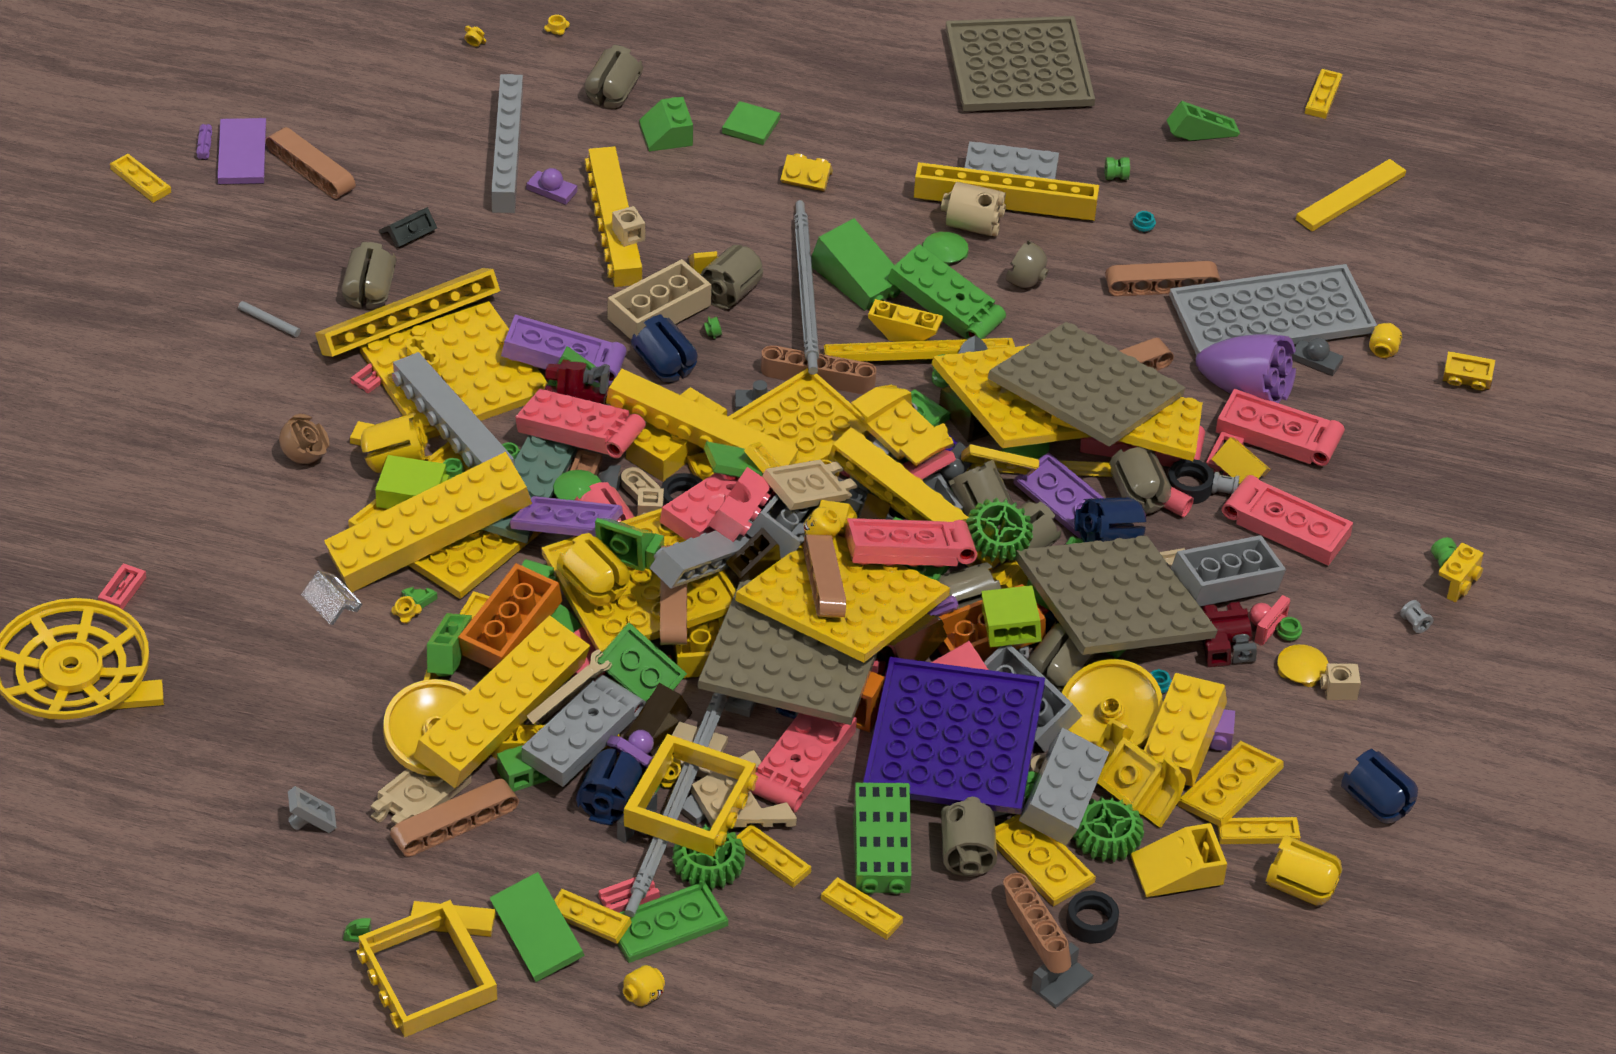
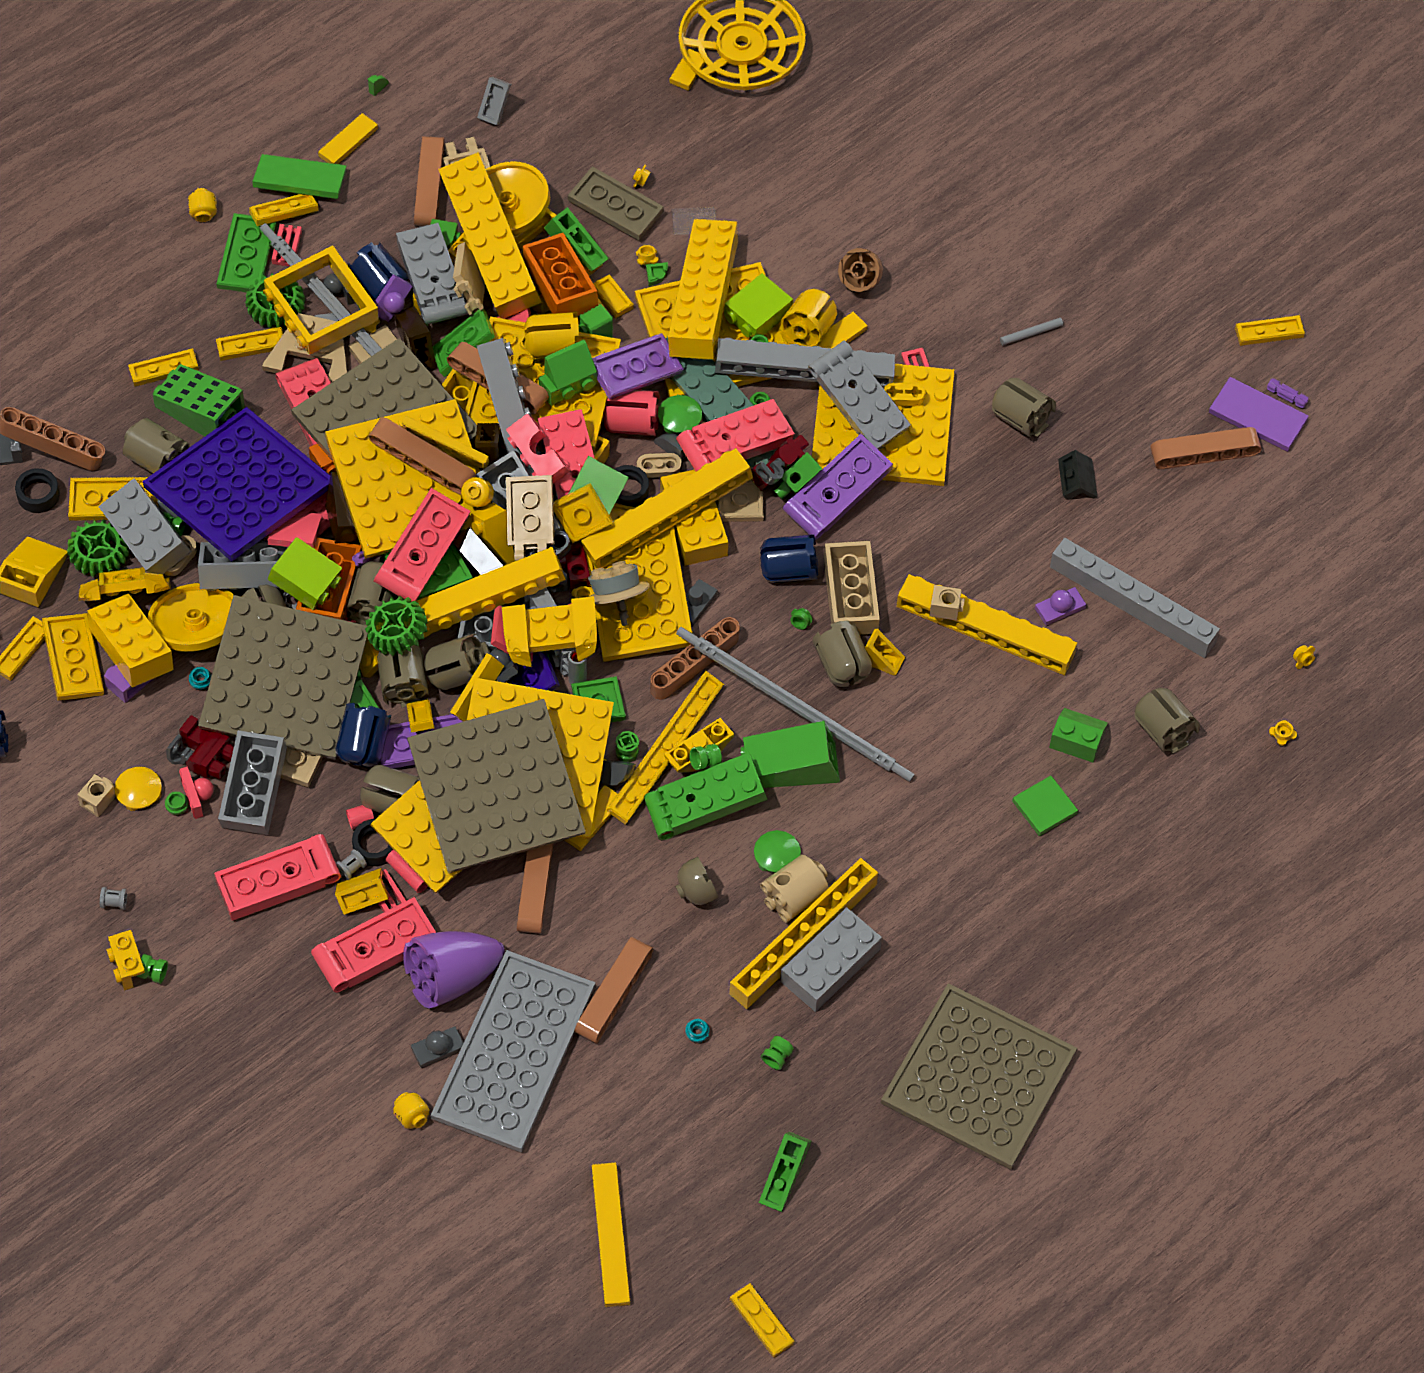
camera: 125 degrees right, 15 degrees up
(126, 588) = (816, 117): coral tile -> none
(312, 652) = (641, 176): none -> yellow plate
(361, 662) = (615, 203): none -> dark tan plate
(407, 312) = (963, 414): yellow brick -> none
(409, 928) = (311, 123): yellow window -> none
(464, 359) = (866, 405): none -> light grey hinge
(649, 500) = (626, 451): tan brick -> none
(801, 554) = (446, 443): none -> yellow tile
(806, 172) = (946, 804): yellow bracket -> none
(817, 416) = (616, 585): none -> piece
(918, 297) = (704, 757): none -> bright green wheel
(1057, 498) = (420, 716): none -> yellow tile
(1468, 371) = (325, 1147): yellow bracket -> none

